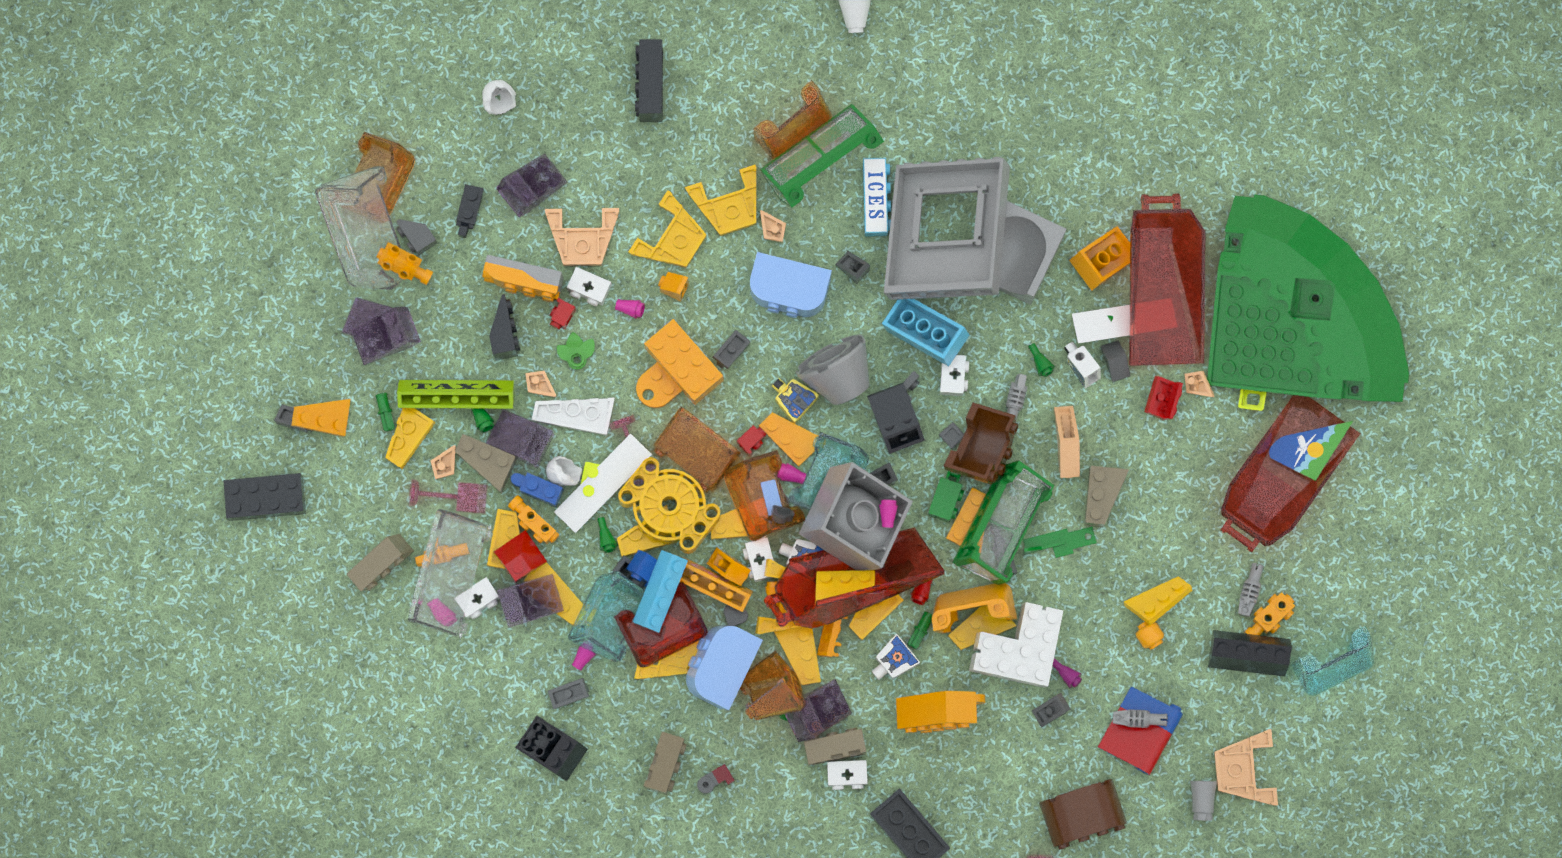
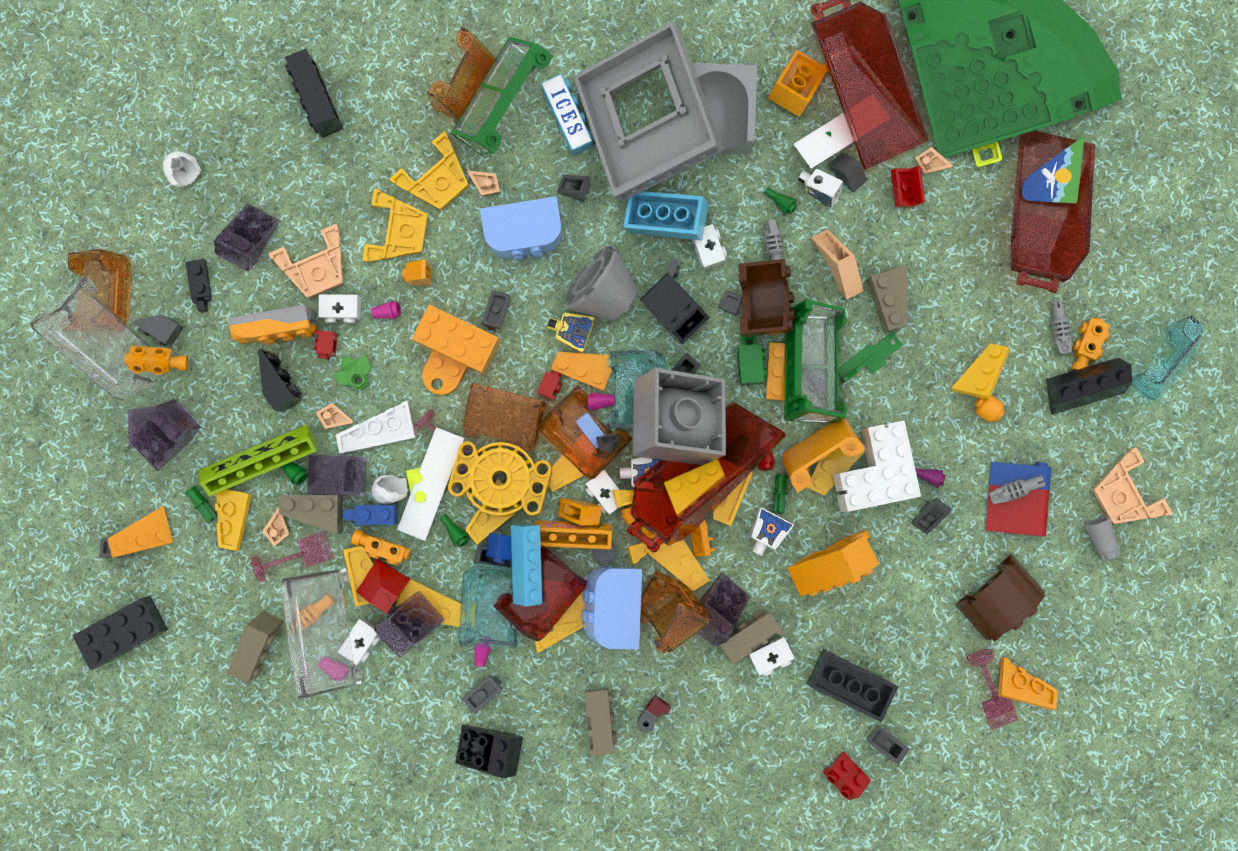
camera: 25 degrees left, 5 degrees up
(888, 512) = (708, 400): dark pink cone -> none

